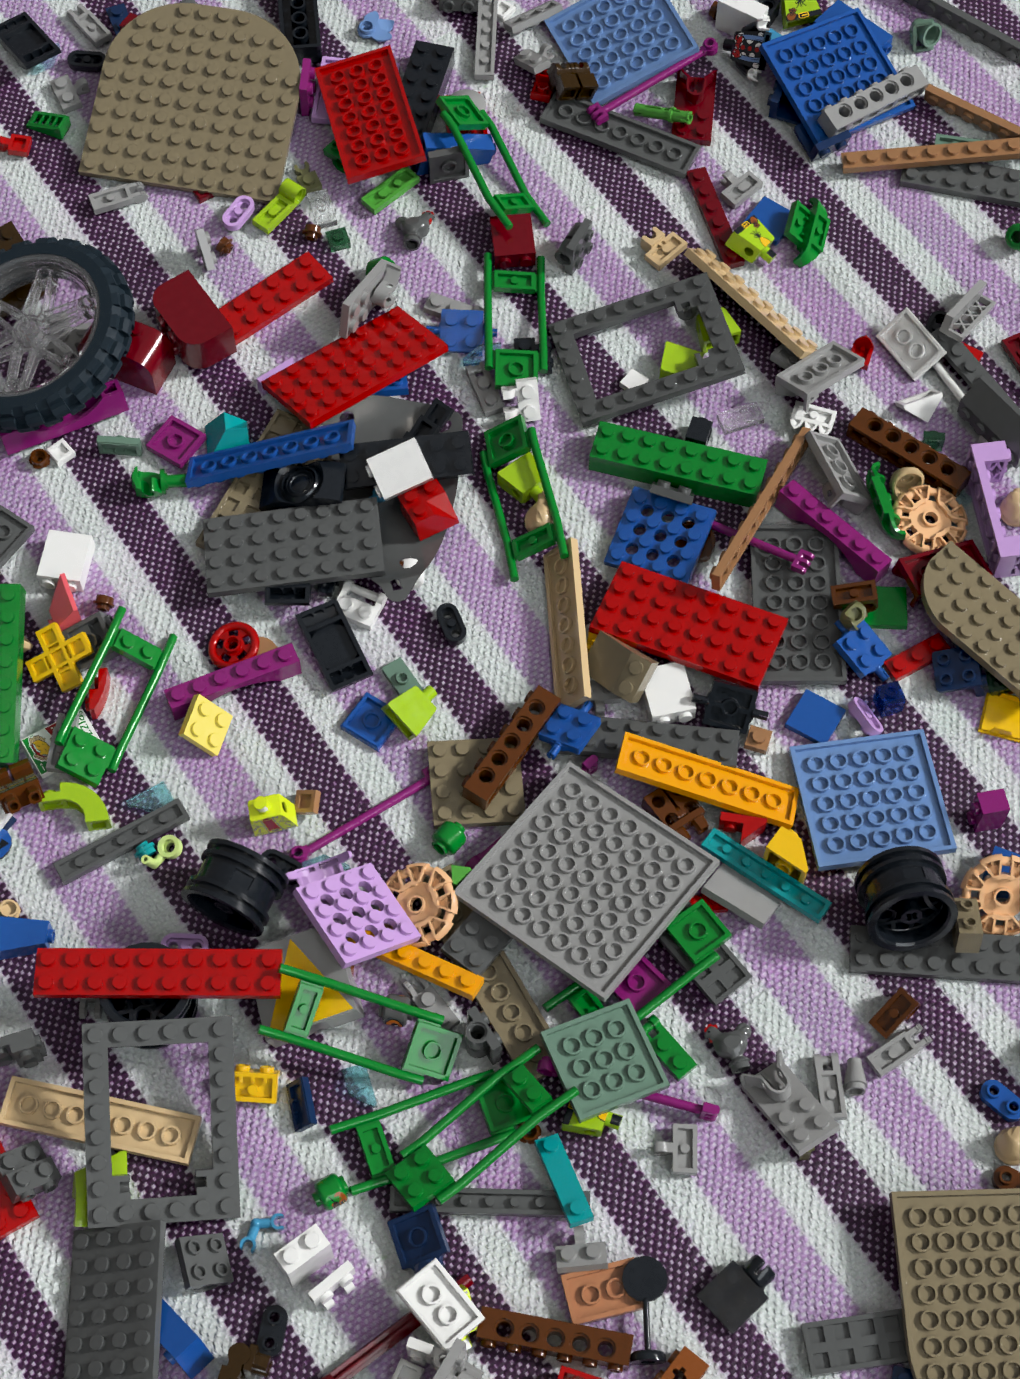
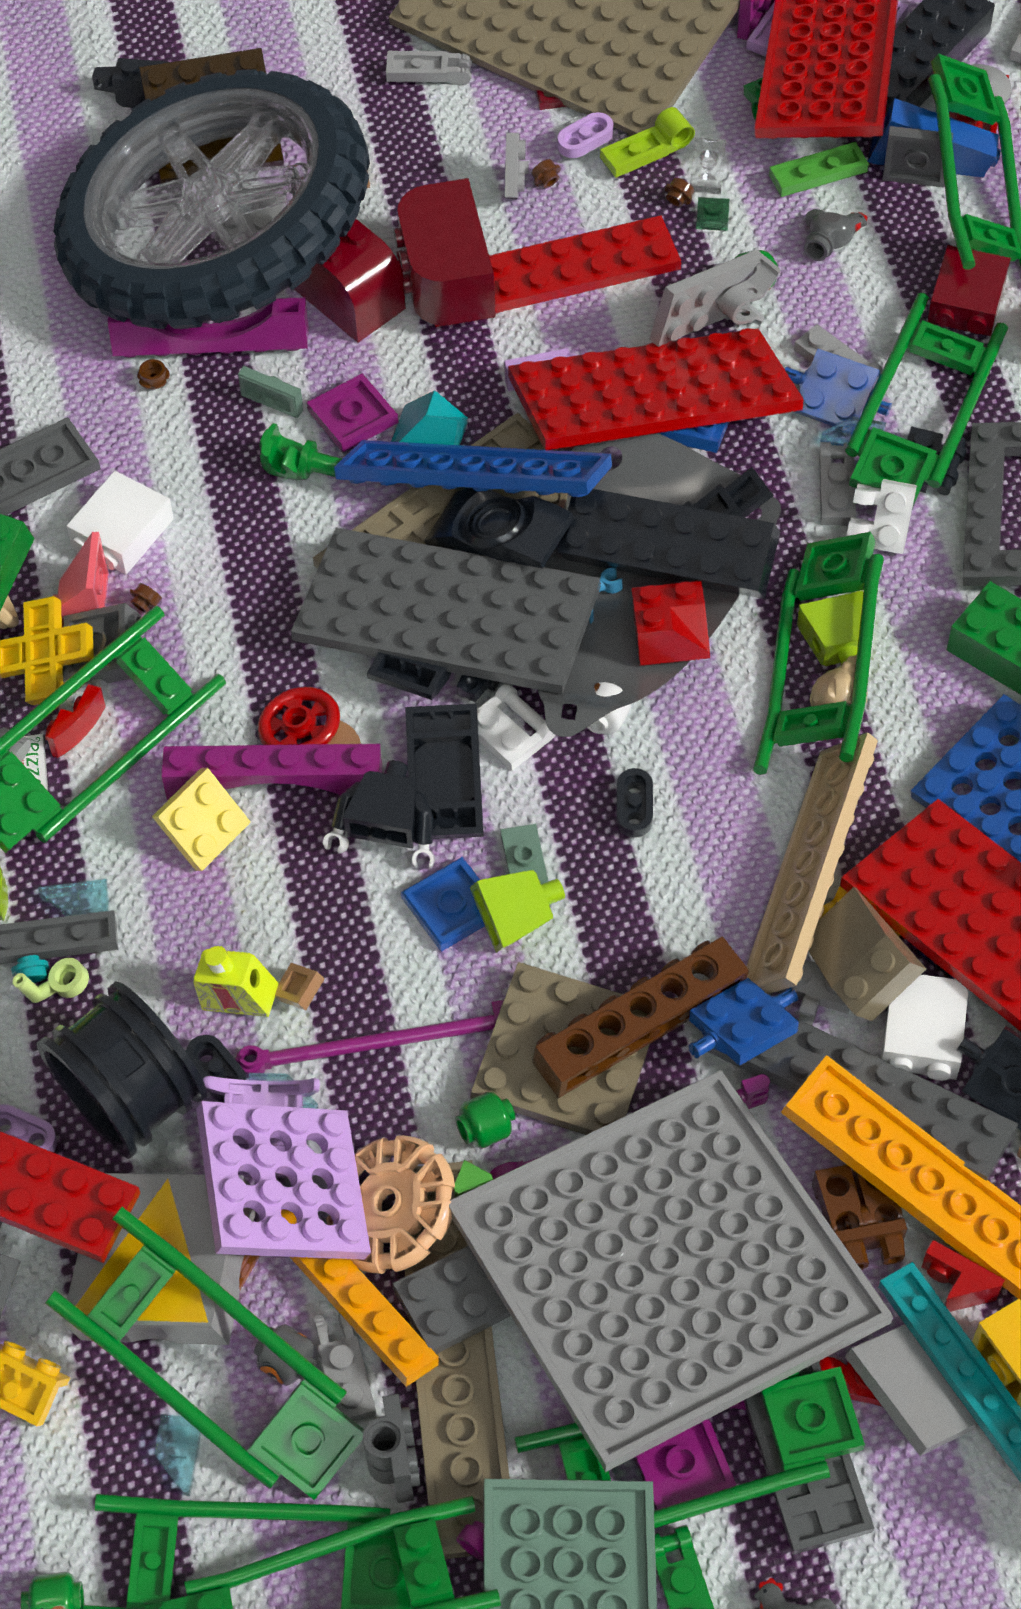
camera: 25 degrees right, 5 degrees down
(60, 452) = (187, 376): white tile -> none
(301, 1104) = (74, 1443): dark blue plate -> none
(307, 179) = (706, 120): olive plate -> none
(312, 681) = (384, 811): none -> black torso
(398, 469) = (647, 547): white brick -> none

